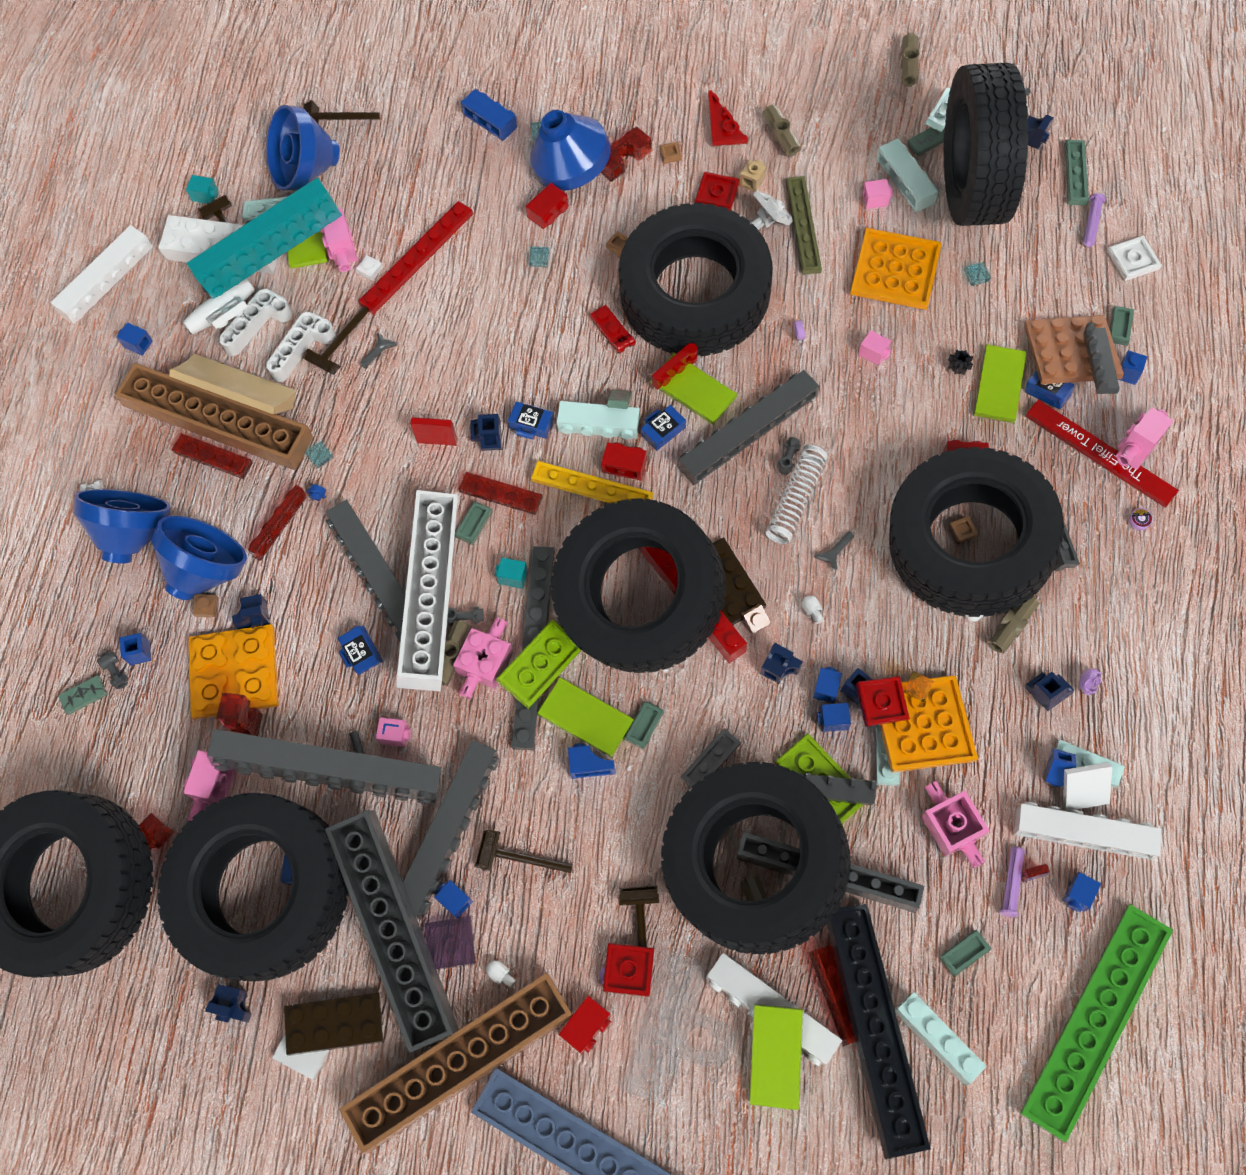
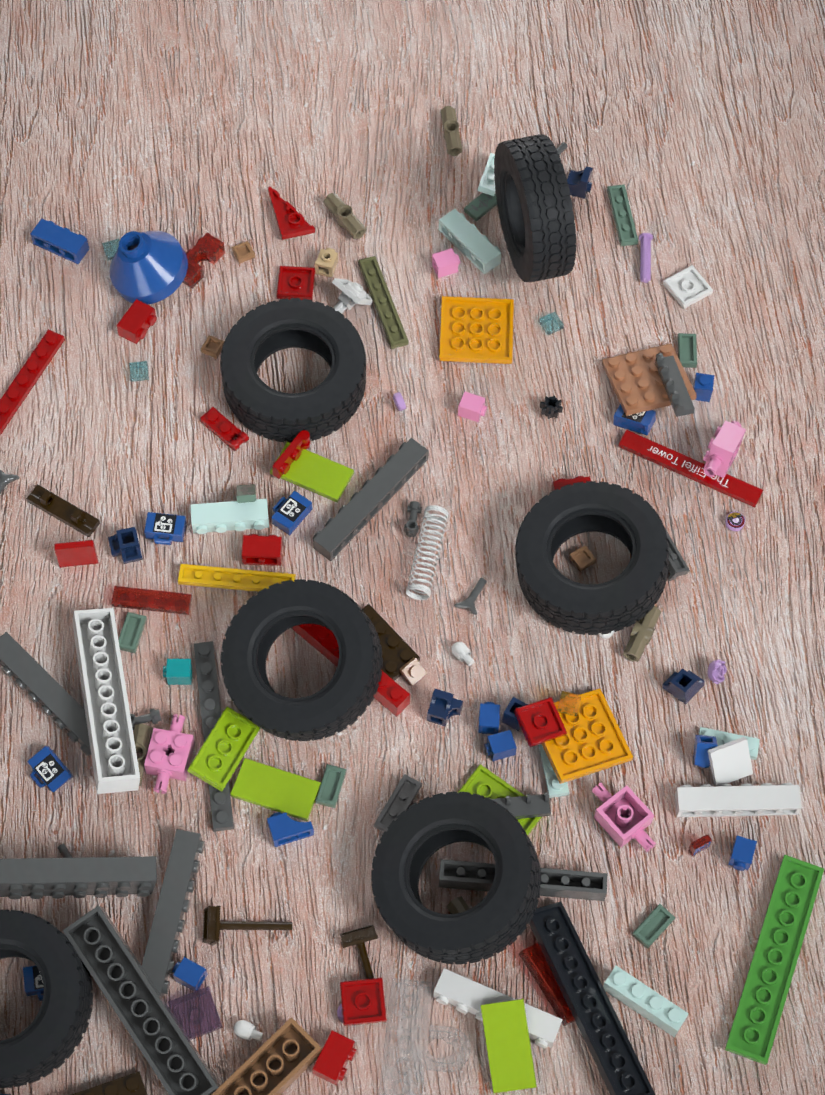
camera: 20 degrees left, 5 degrees down
(393, 732) = (99, 837): bright pink brick -> none
(433, 386) = (63, 510): none -> dark brown hinge
(1000, 383) = (590, 420): lime tile -> none
(1013, 882) = (683, 858): lavender axle -> none

